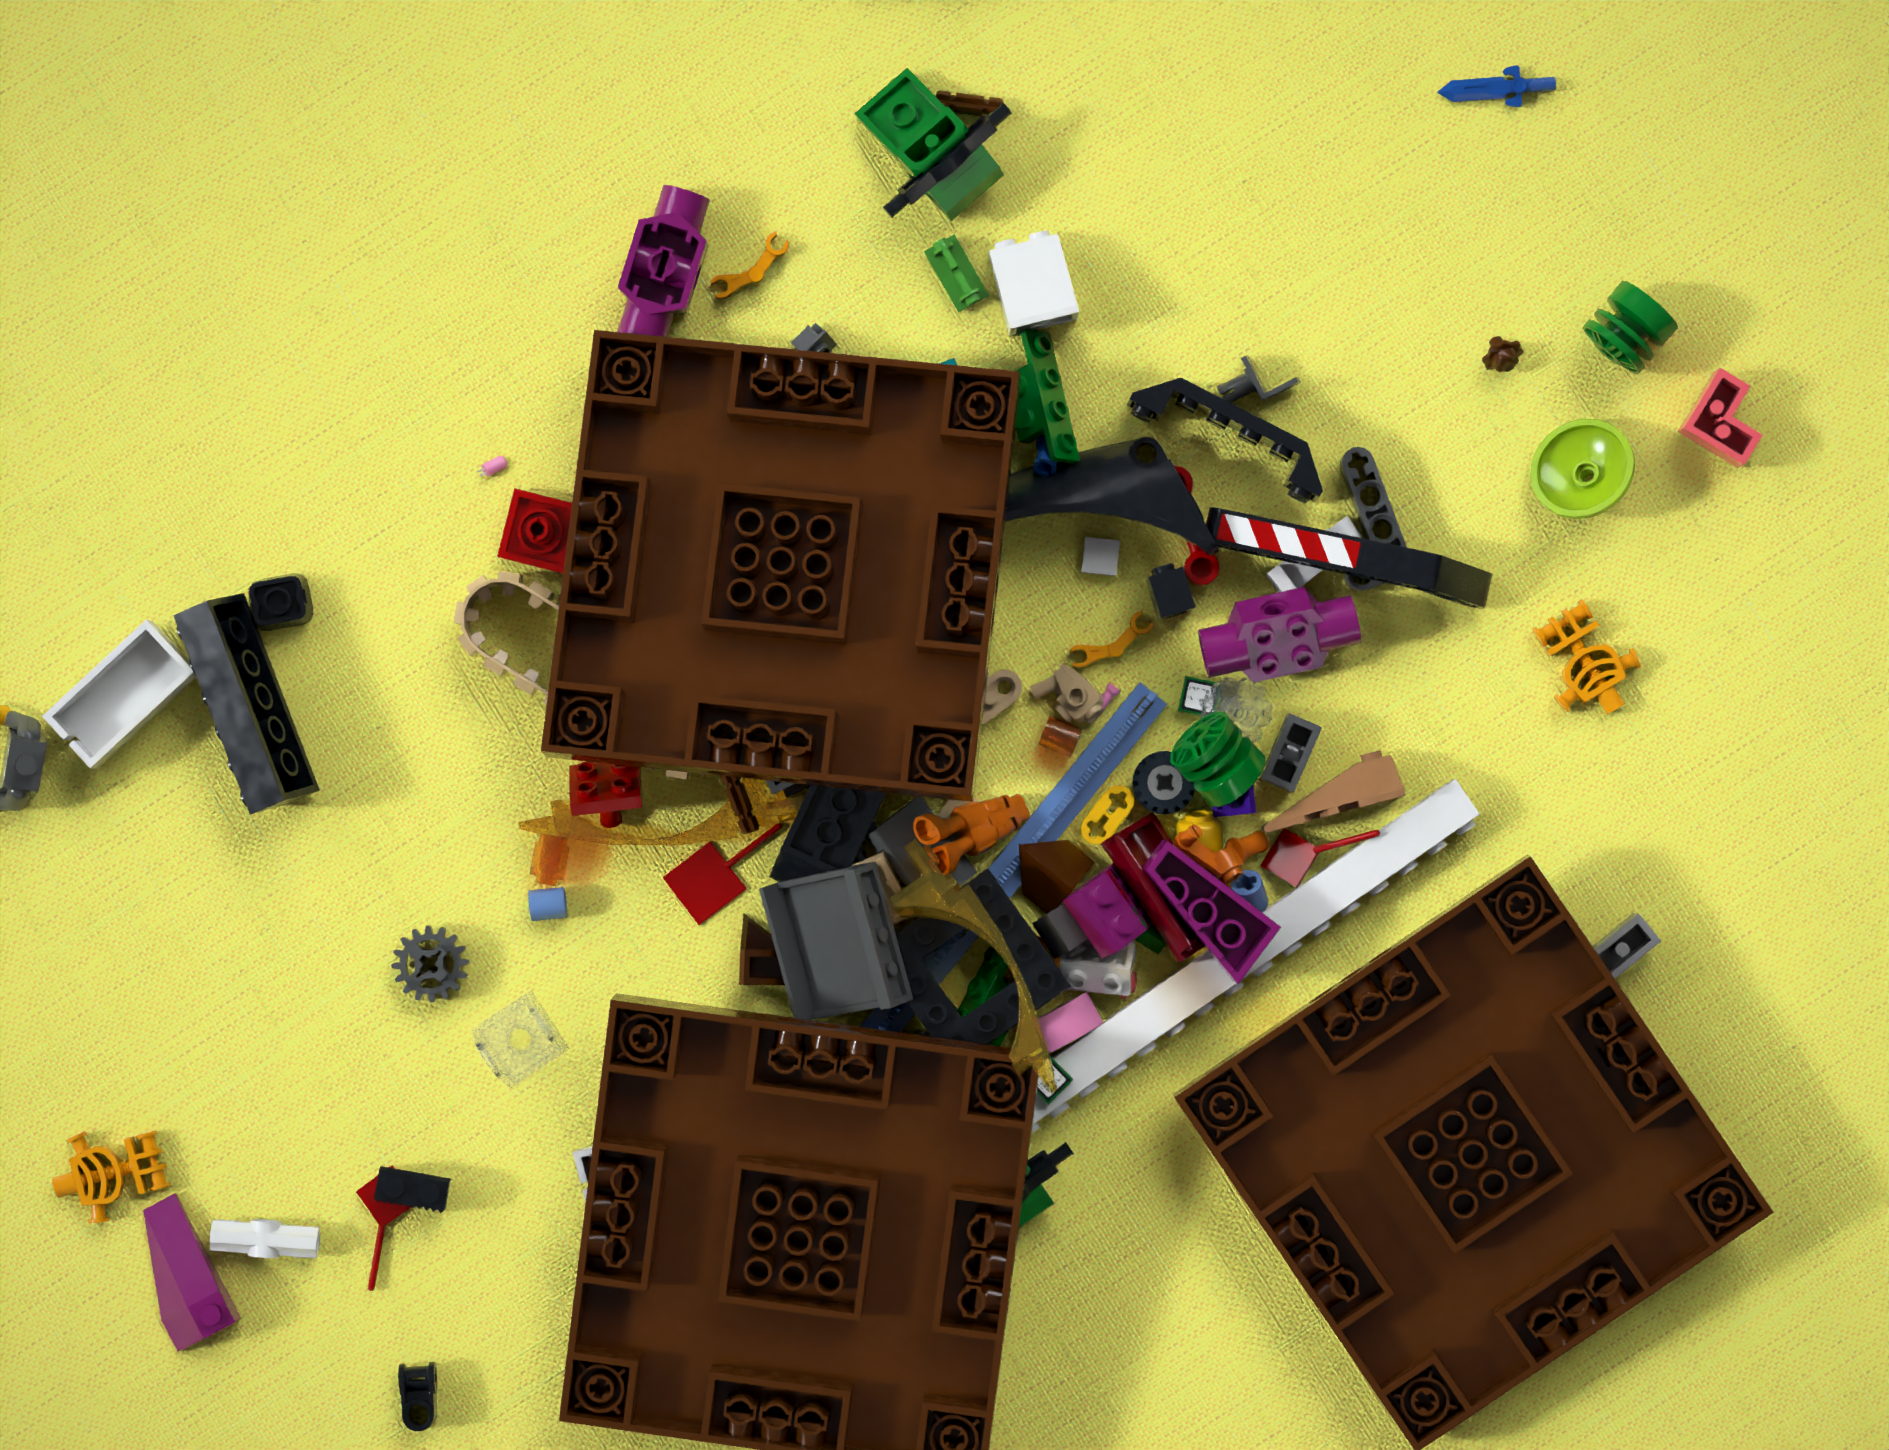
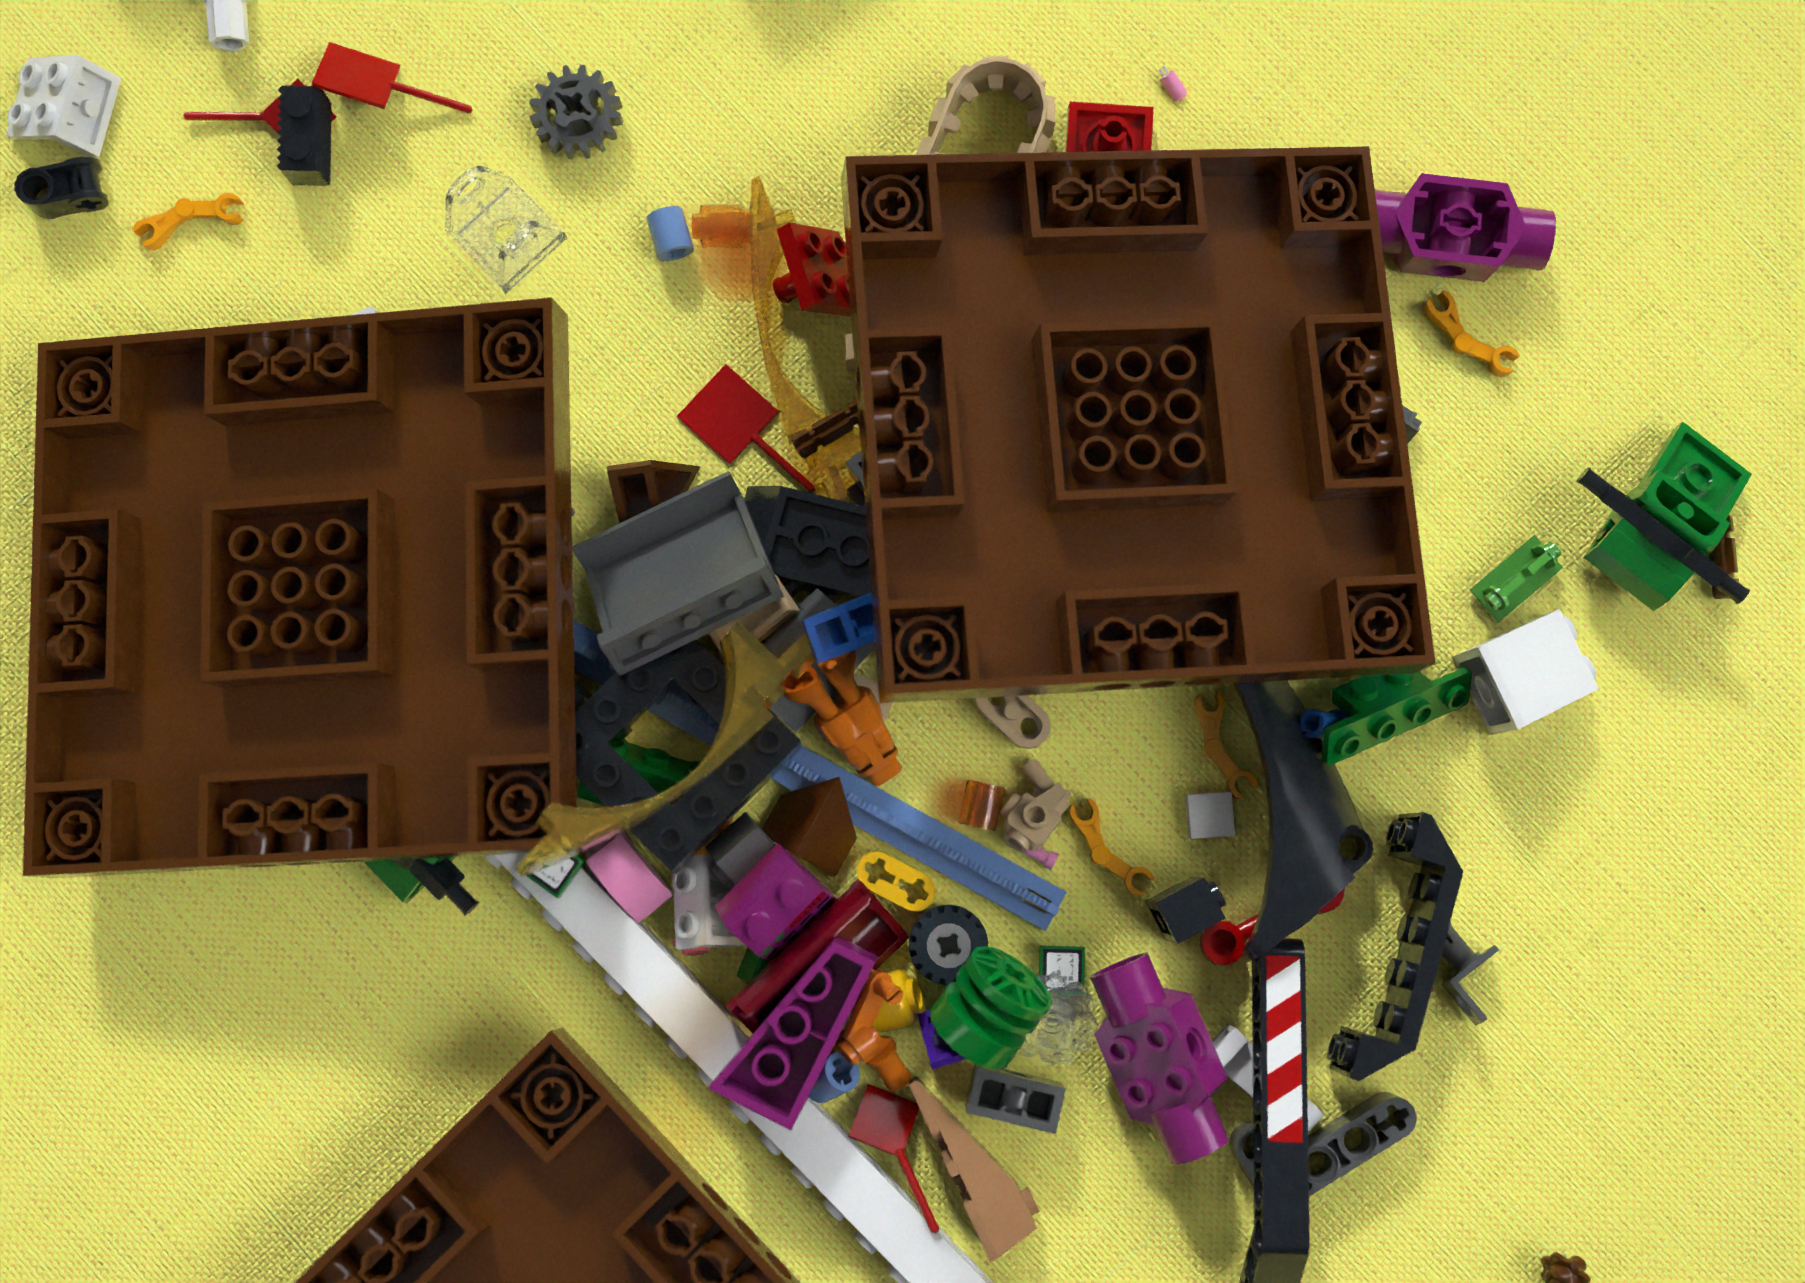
camera: 85 degrees right, 5 degrees down
(343, 1389) = (64, 102): none -> white bracket
(371, 1131) = (368, 79): none -> red piece
(452, 1300) = (186, 210): none -> light orange piece
(907, 821) = (840, 628): none -> blue slope
(1046, 543) = (1214, 749): none -> light orange piece

